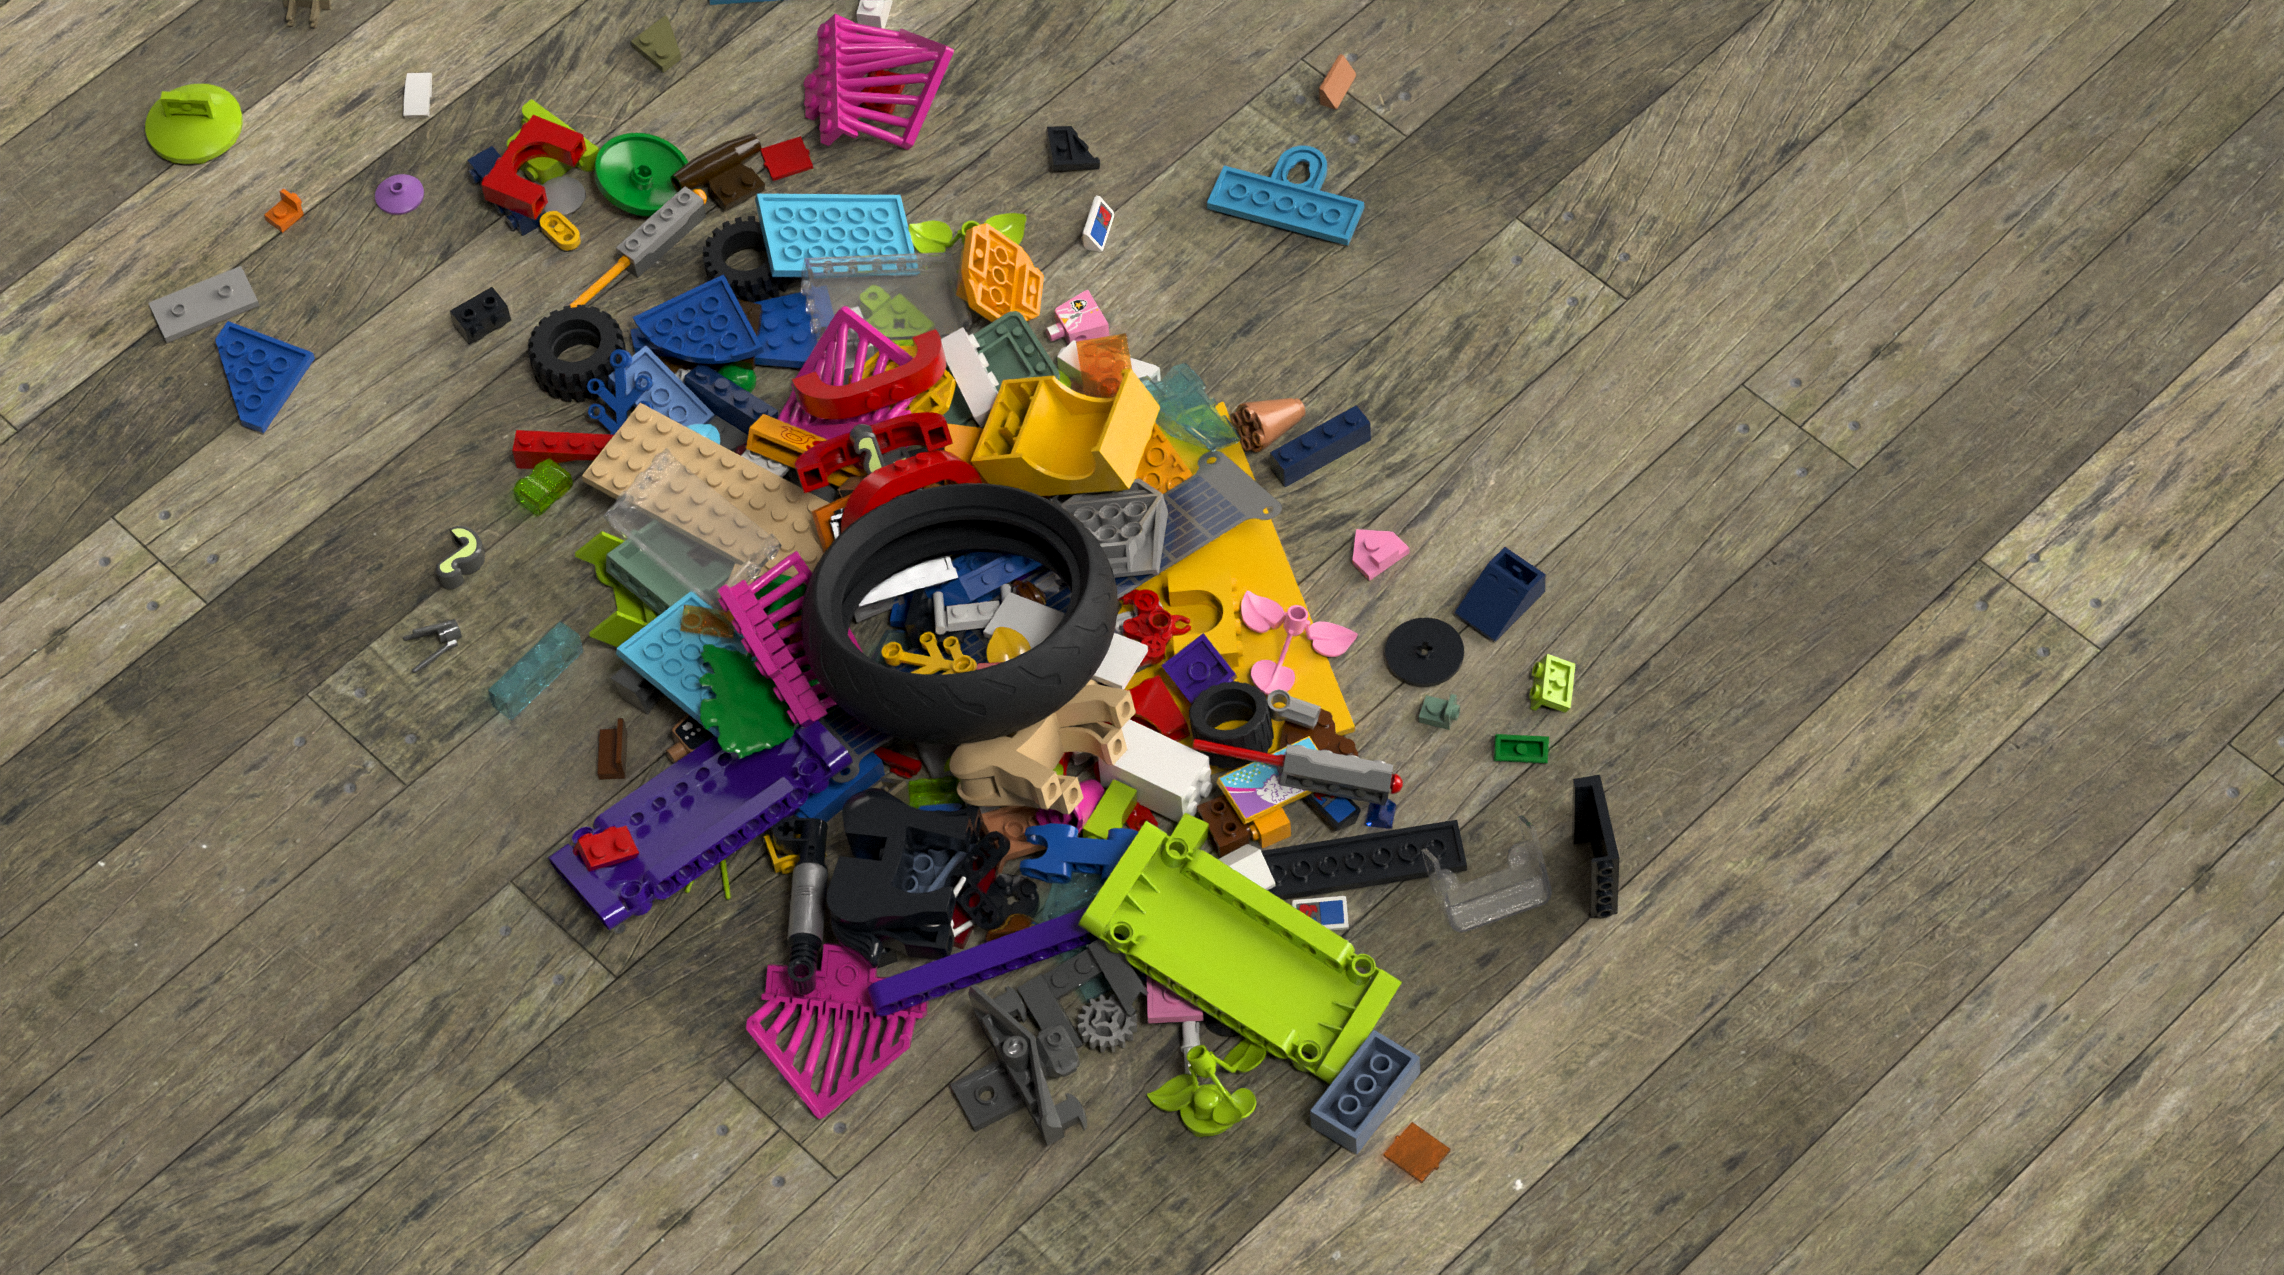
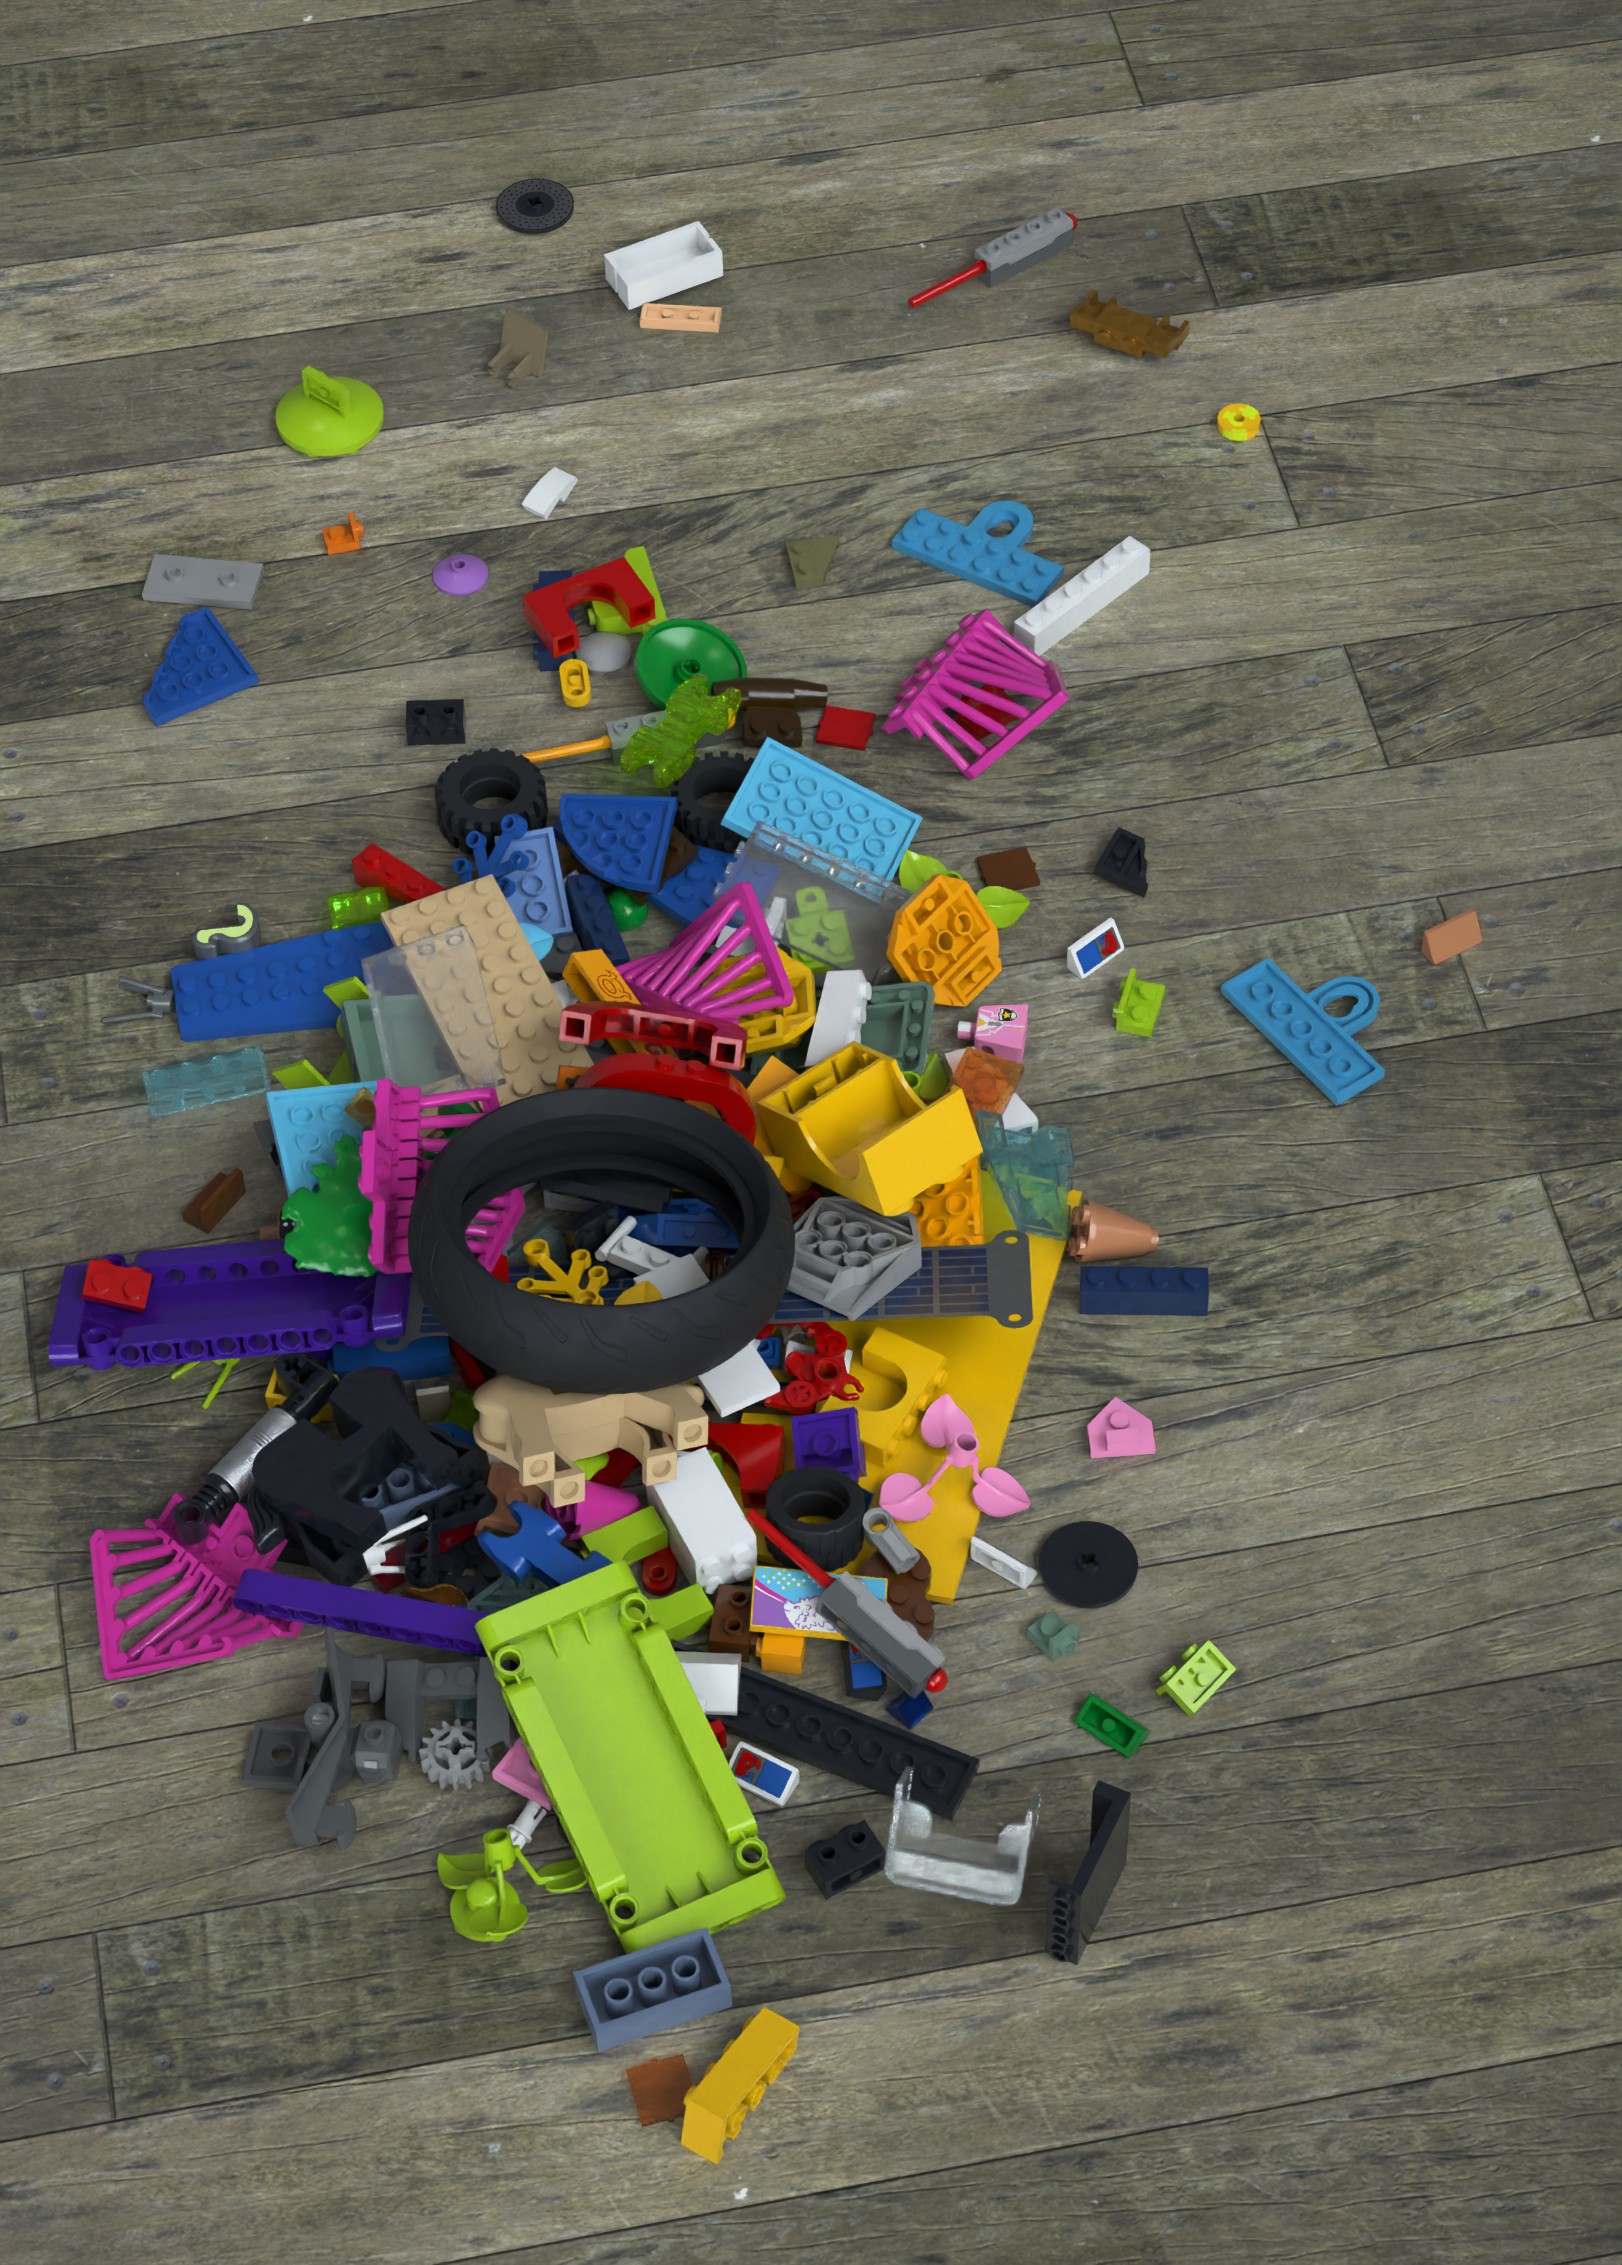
camera: 30 degrees right, 5 degrees down
(530, 567) = (273, 984): none -> blue wing
(684, 236) = (672, 742): none -> clear neon green piece
(866, 445) = (656, 1020): dark grey animal -> none
(878, 390) = (725, 982): red arch -> none
(988, 200) = (1009, 869): none -> reddish brown piece
(1159, 249) = (1138, 1006): none -> lime bracket
(1367, 684) = (1001, 1563): none -> white slope
(1420, 935) = (844, 1859): none -> black brick
(1466, 1117) = (737, 2083): none -> yellow wedge
(1501, 594) = (1212, 1550): dark blue slope -> none

